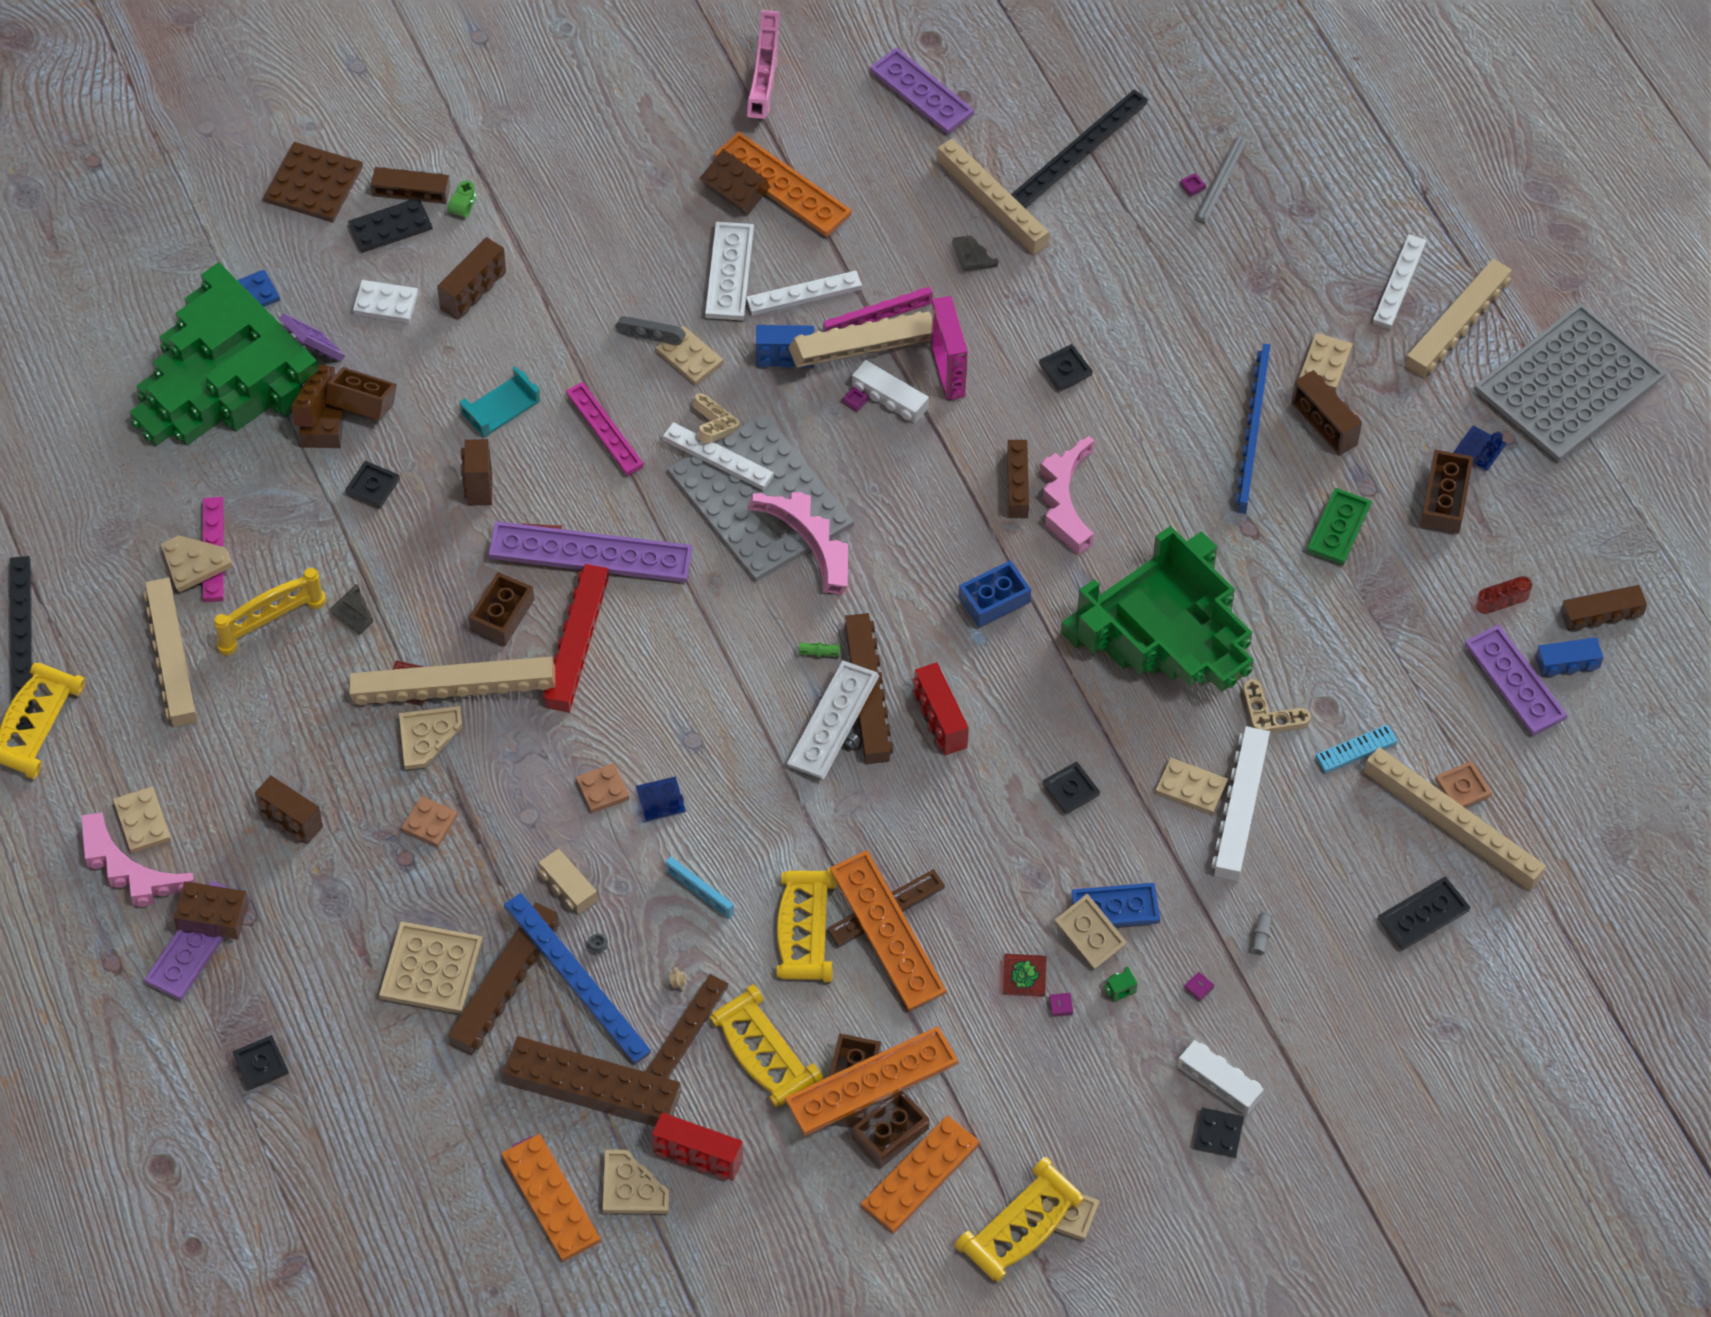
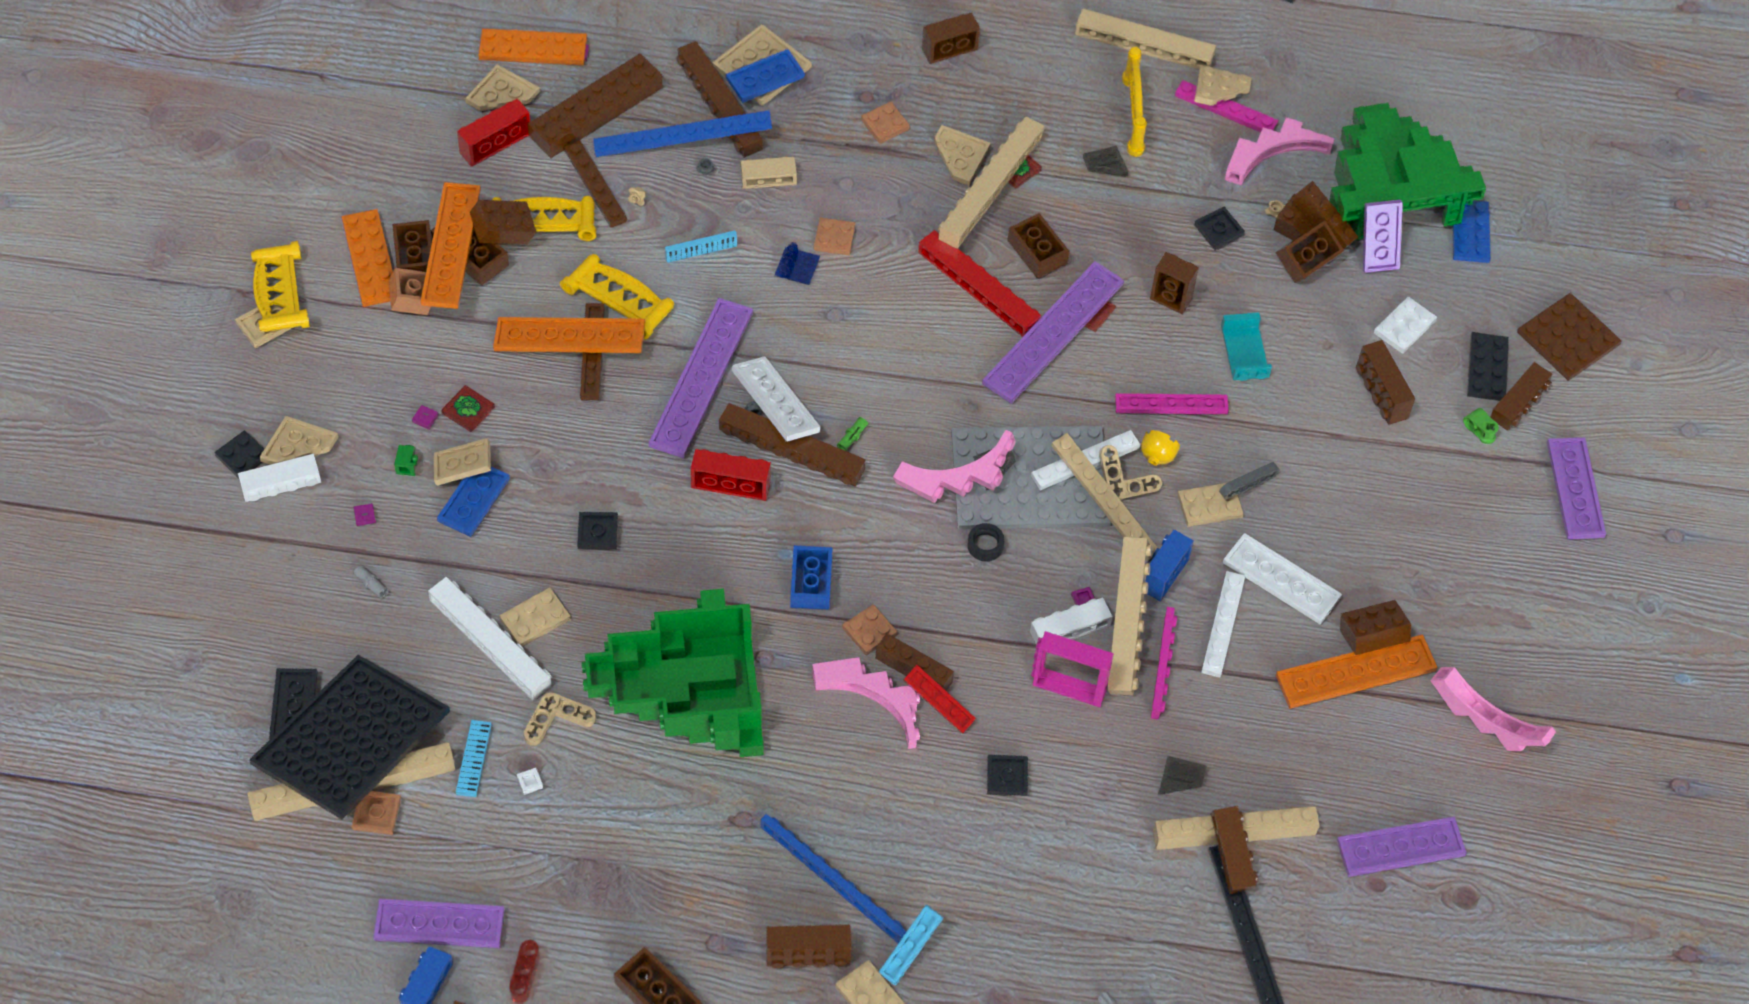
camera: 120 degrees right, 0 degrees up
(264, 499) = (1270, 143): none -> bright pink arch
(313, 450) = (1275, 204): none -> tan plate
(452, 945) = (765, 75): none -> blue plate
(481, 113) = (1576, 488): none -> medium lavender plate
(666, 408) = (1158, 448): none -> yellow cylinder
(748, 421) = (1099, 489): none -> tan plate
(812, 1050) = (502, 222): none -> reddish brown brick
(847, 802) = (700, 378): none -> medium lavender plate
(855, 504) = (985, 529): none -> black tyre
(942, 1096) = (406, 291): none -> nougat brick
(1005, 533) = (868, 629): none -> nougat plate
(1022, 176) = (1233, 849): none -> reddish brown brick
(1039, 440) = (939, 699): none -> red plate
(1174, 1089) = (296, 440): none -> tan plate
(1271, 344) = (911, 944): none -> medium azure tile
(1339, 526) = (691, 887): green plate -> none
(1344, 692) = (529, 781): none -> white plate
(1424, 833) = (349, 736): none -> black plate

